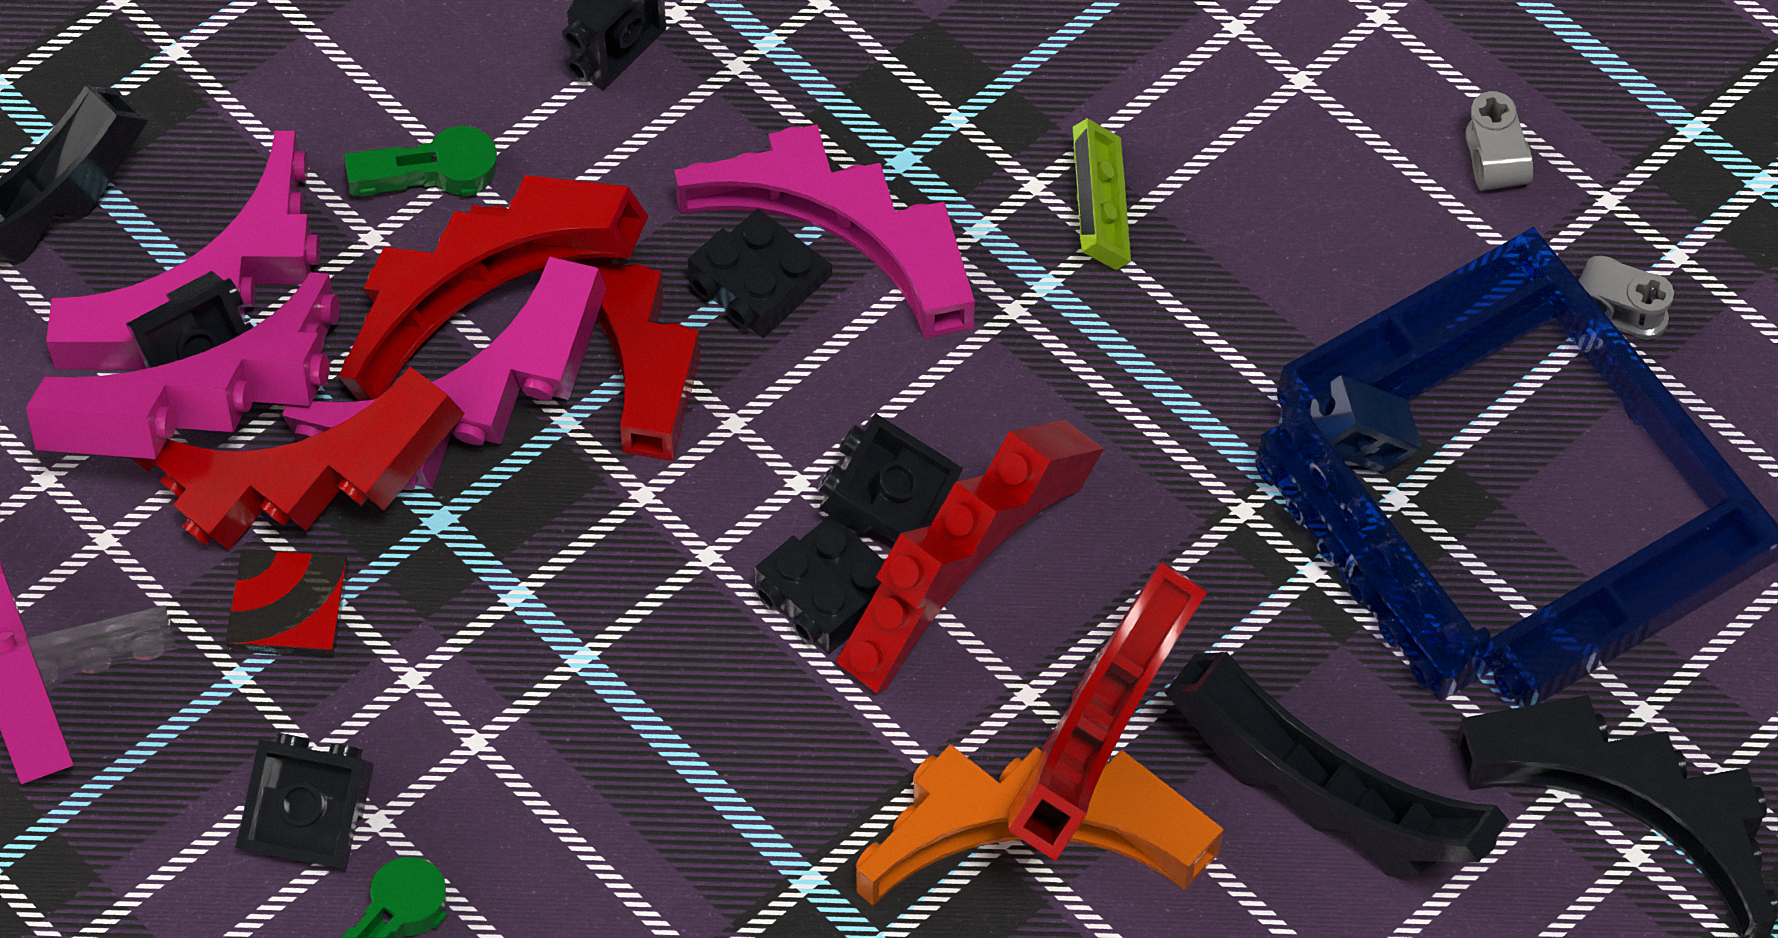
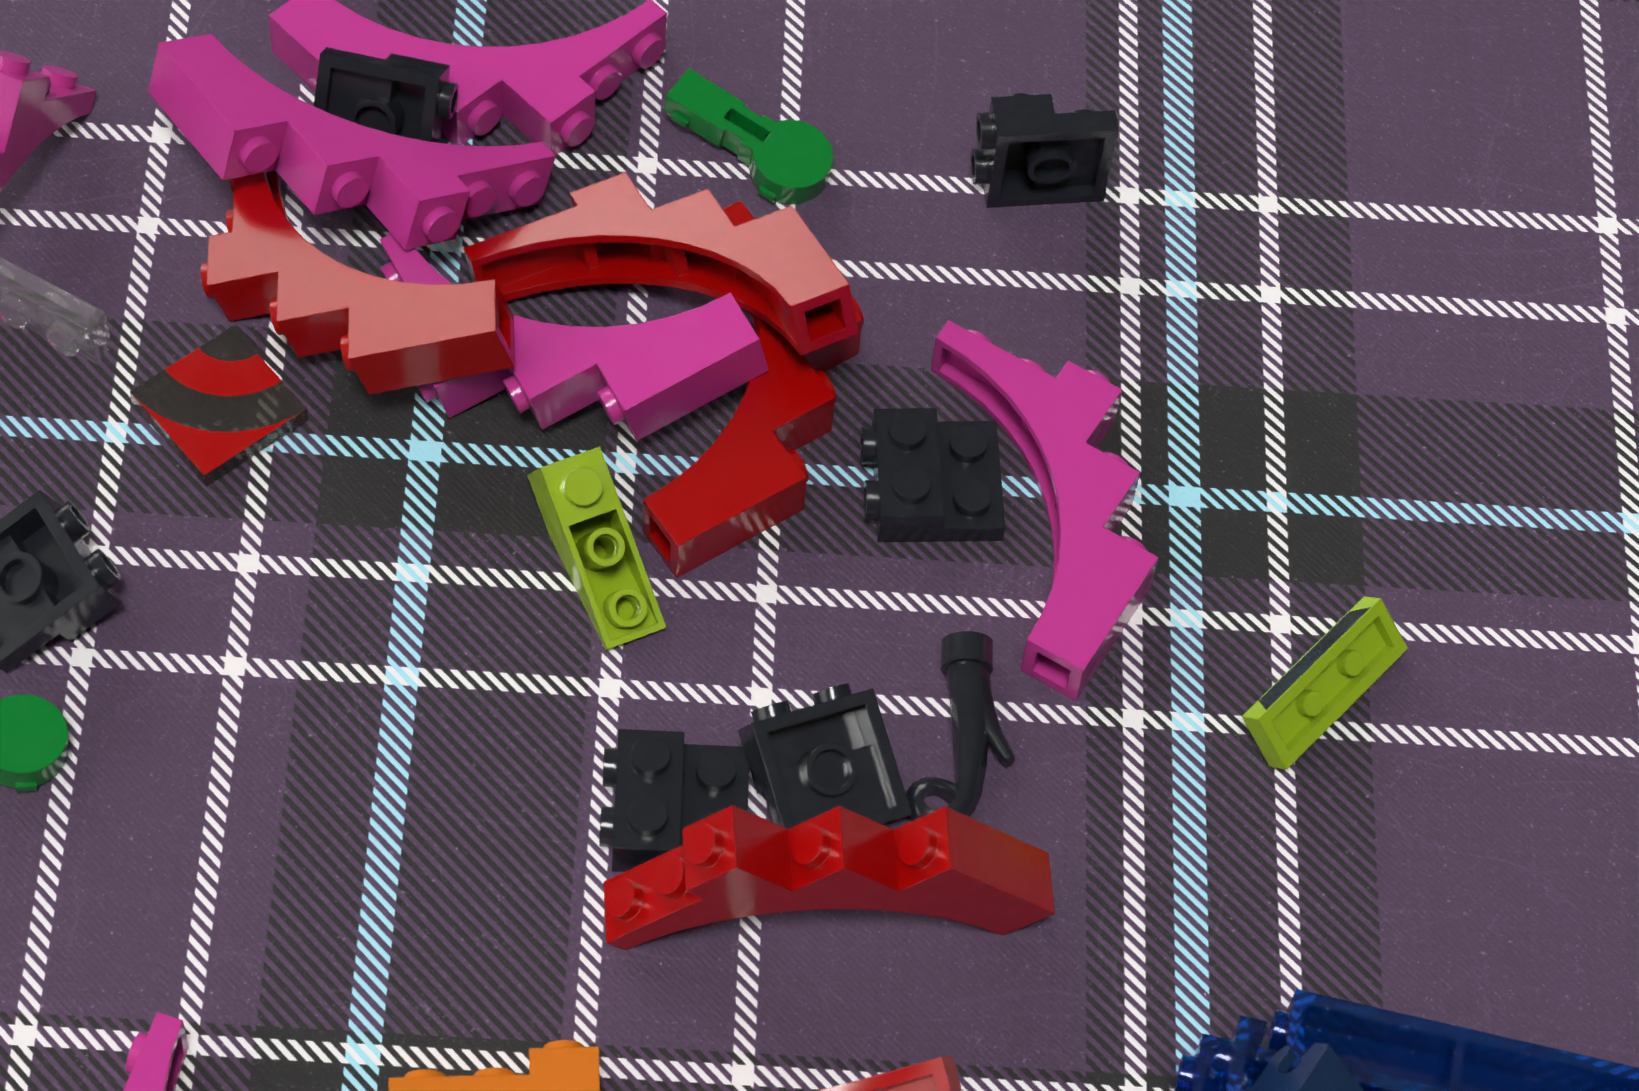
camera: 40 degrees right, 0 degrees up
(612, 479) = (597, 546): none -> lime slope
(942, 391) = (975, 724): none -> black plant

